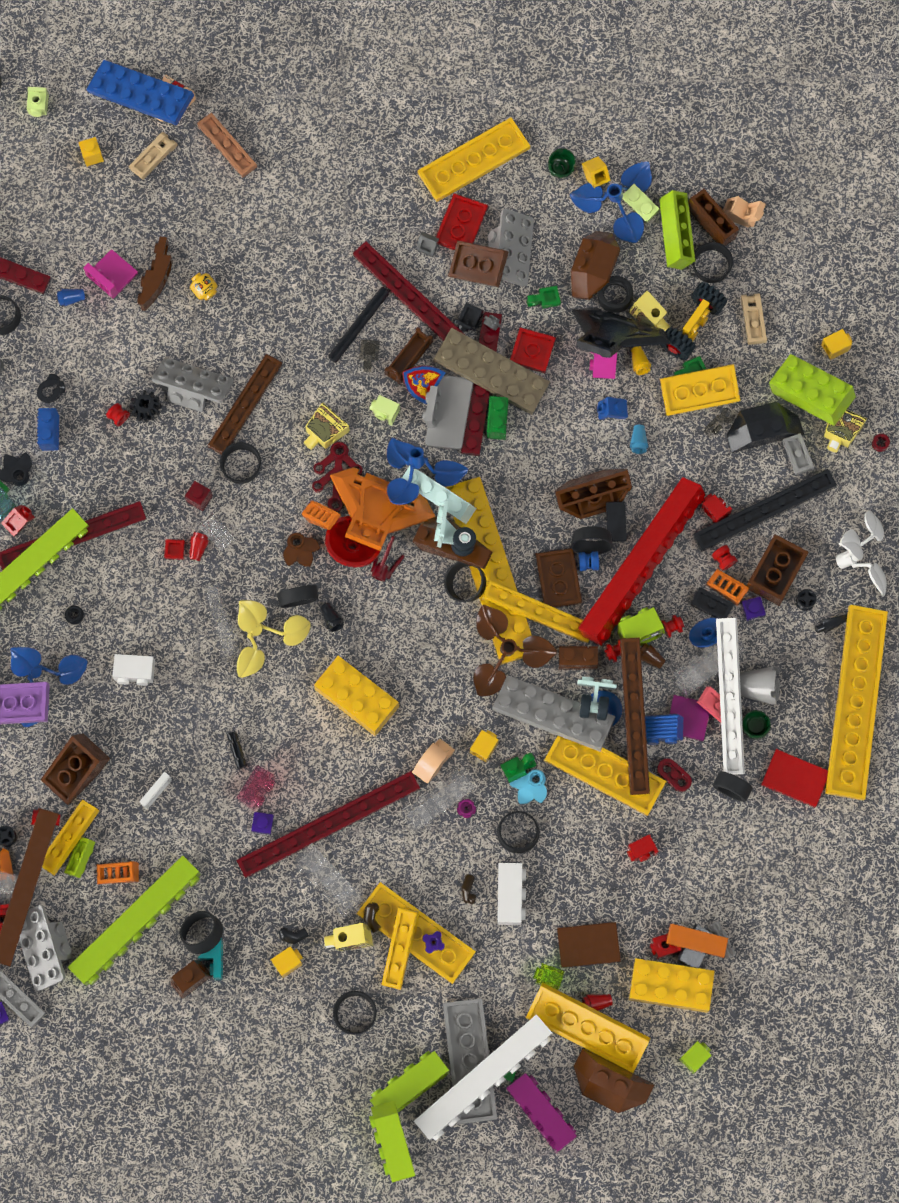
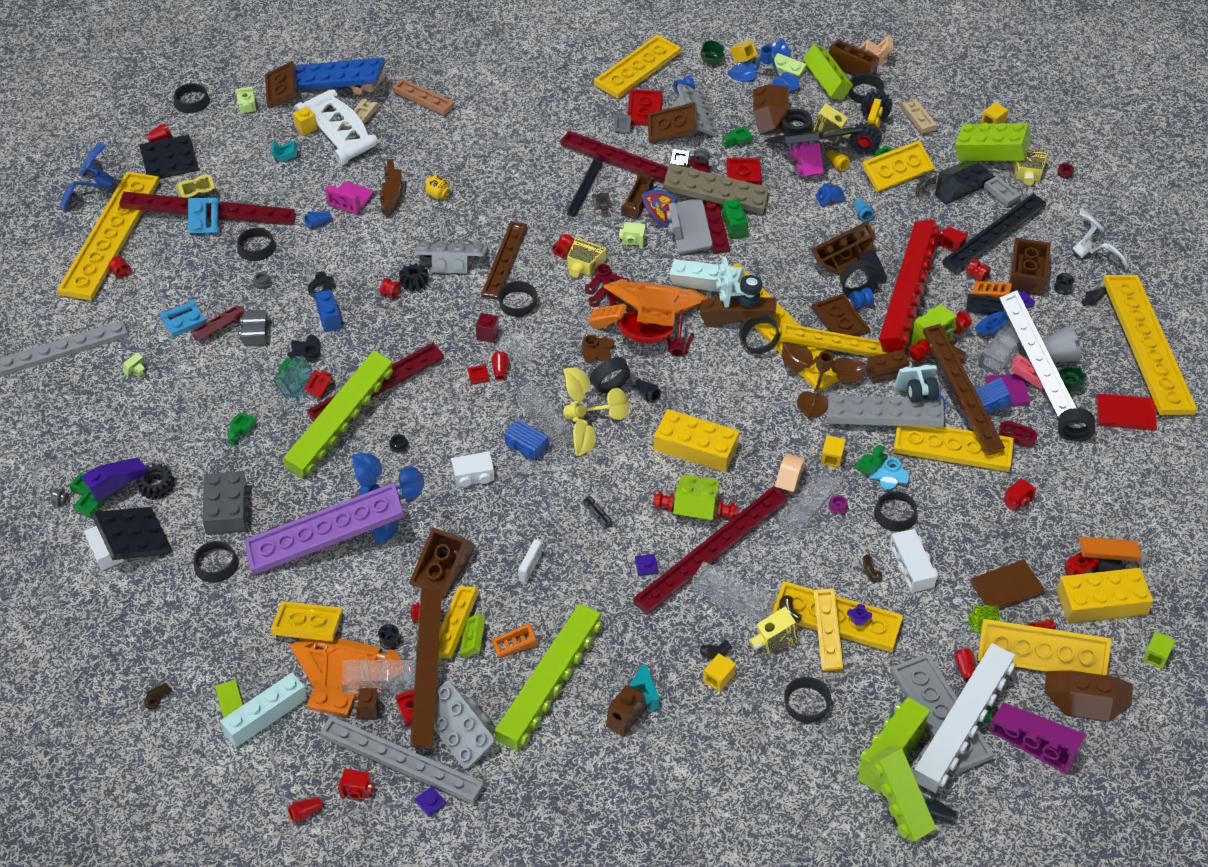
camera: 20 degrees left, 25 degrees down
(59, 189) = (284, 152): none -> teal bracket
(79, 88) = (281, 84): none -> reddish brown tile
(126, 203) = (345, 148): none -> white piece
(195, 647) = (526, 440): none -> blue brick
(207, 944) = (627, 675): black tyre -> none
(256, 788) = (629, 534): clear pink brick -> none
(309, 405) = (563, 245): none -> red wheel
(331, 768) = (696, 498): none -> lime brick
(401, 454) = (679, 248): blue plant -> none
(426, 1157) = (940, 811): none -> black cone
(513, 1017) = (965, 662): none -> red cone
(515, 204) = (688, 80): none -> blue wheel

